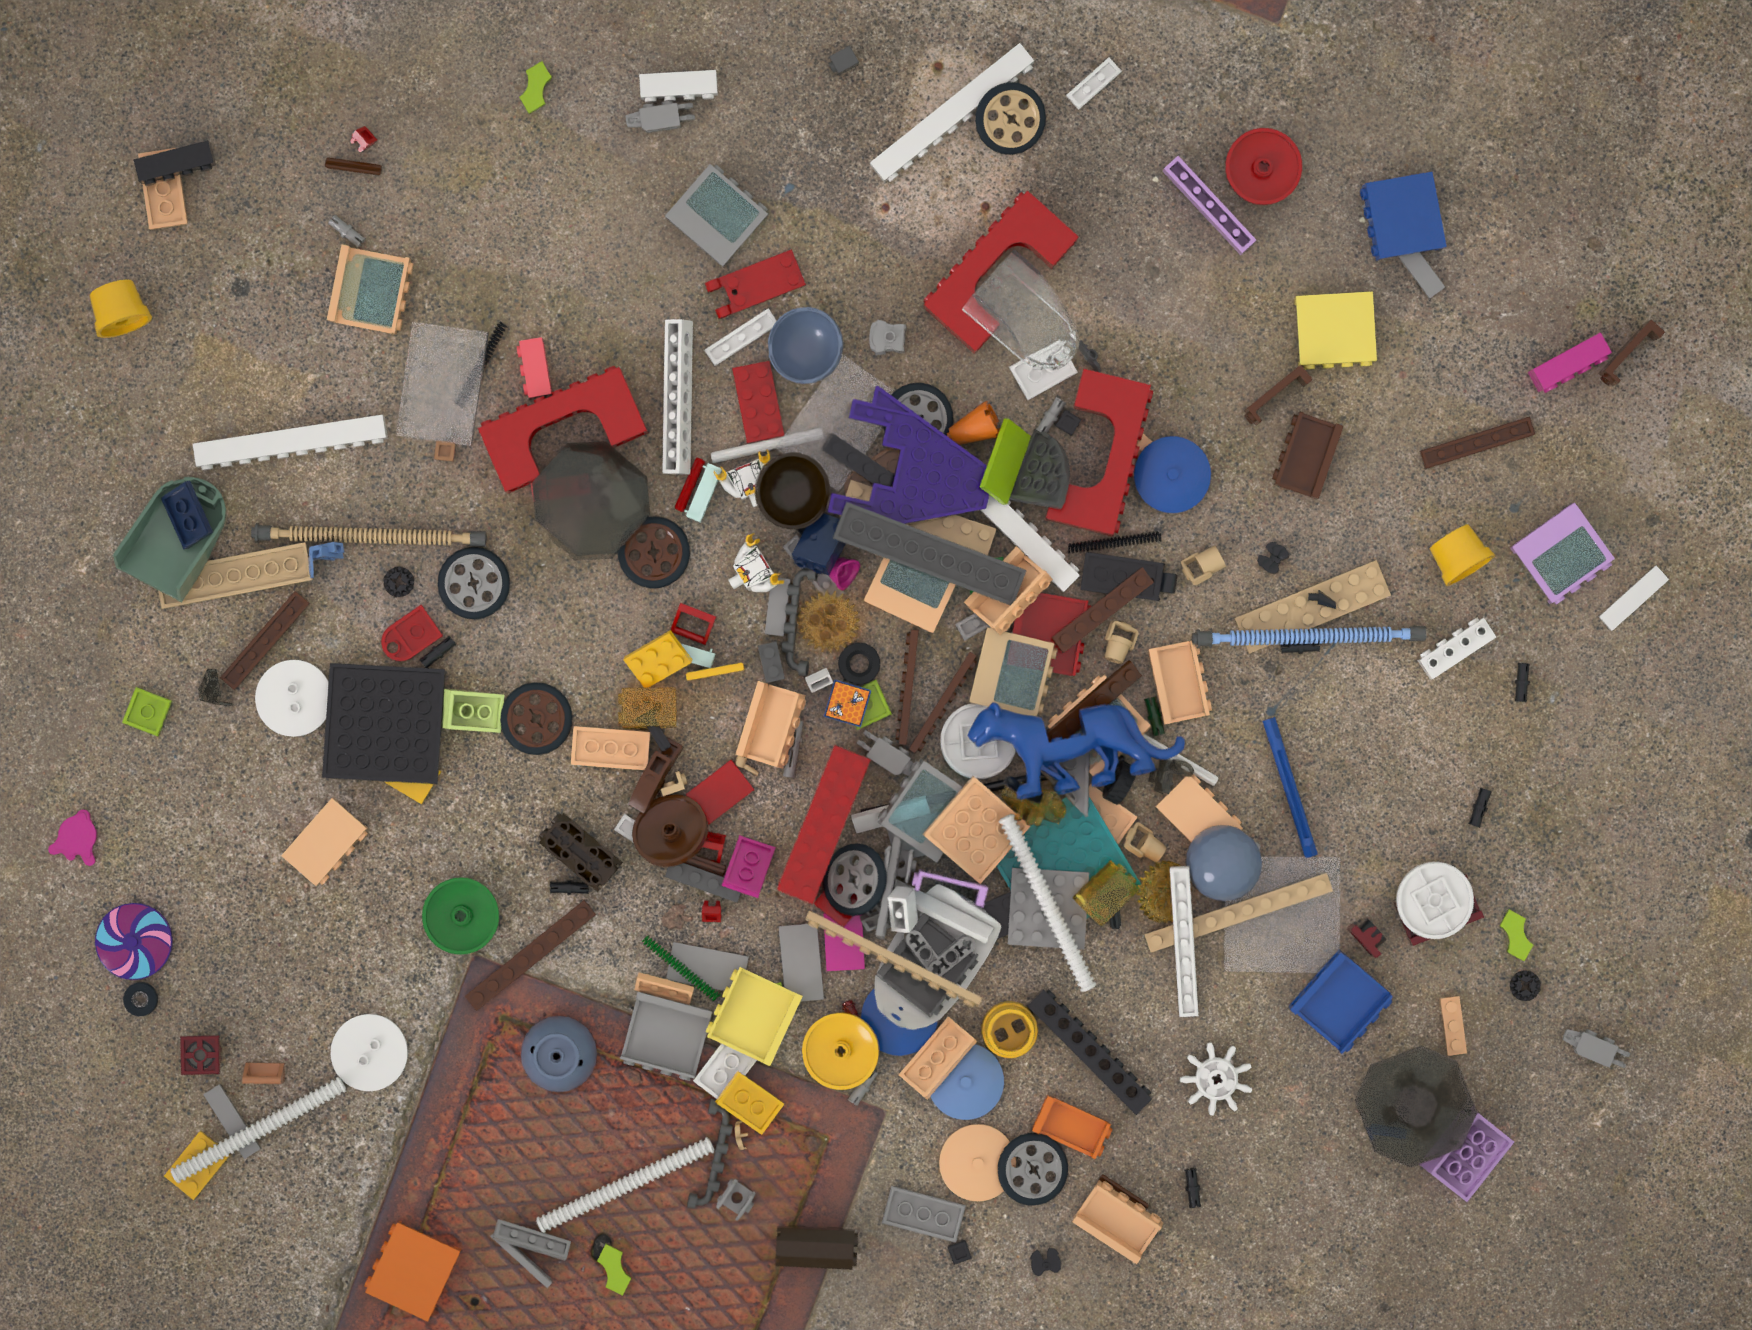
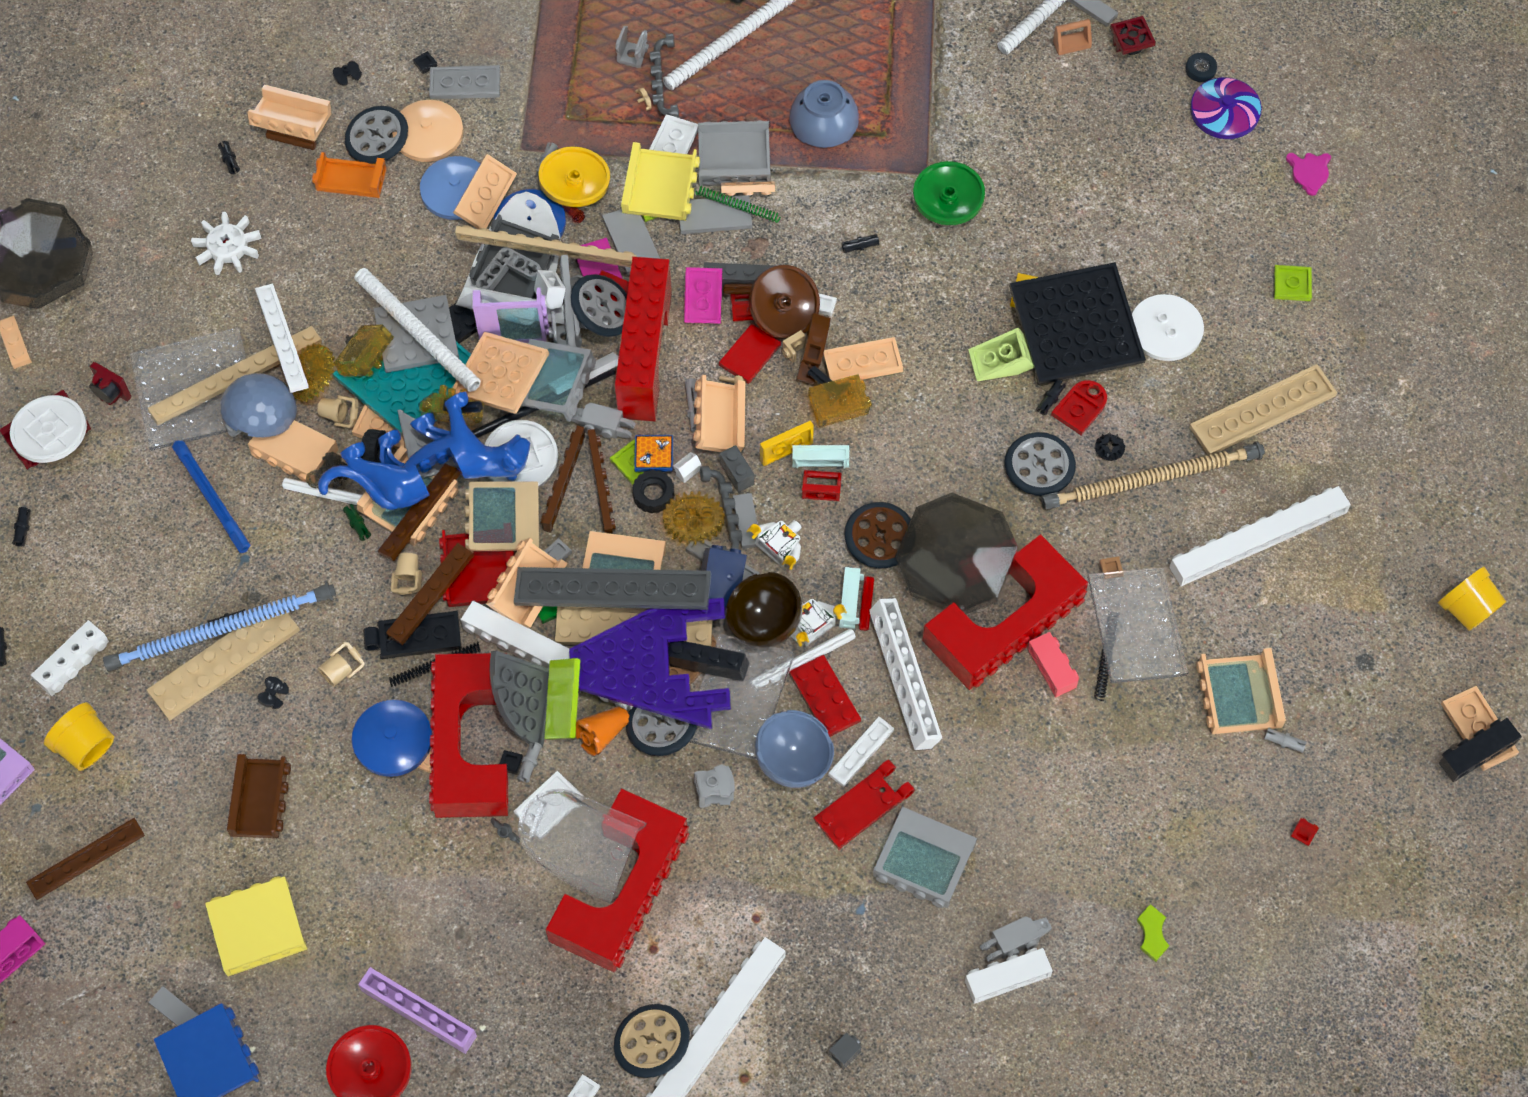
camera: 160 degrees right, 25 degrees down
(154, 550) = (1332, 423): sand green windscreen -> none
(186, 515) = (1329, 442): dark blue tile -> none
(210, 689) = (1244, 307): clear smoke piece -> none
(265, 640) = (1212, 365): reddish brown plate -> none
(325, 842) = (1091, 219): light nougat panel -> none
(327, 551) = (1190, 446): medium blue piece -> none
(353, 166) = (1304, 803): reddish brown axle -> none
(369, 1052) = (989, 78): white plate -> none
(510, 720) = (937, 390): wedge -> none
(530, 955) = (875, 185): reddish brown plate -> none
(579, 851) = (868, 269): dark brown brick -> none
(657, 659) = (844, 439): yellow plate -> none
(711, 913) = (725, 254): red tile -> none
(749, 1102) = (643, 119): yellow plate -> none
(816, 1247) = (558, 25): dark brown brick -> none
(844, 572) = (693, 559): dark pink helmet -> none
(1002, 1016) = (414, 236): yellow piece -> none
(1134, 1103) = (404, 257): black brick -> none
(1179, 682) = (340, 557): light nougat panel -> none
(1299, 374) = (304, 843): reddish brown panel -> none
(1322, 599) = (214, 663): black bar -> none
(1341, 1001) = (122, 330): blue panel -> none

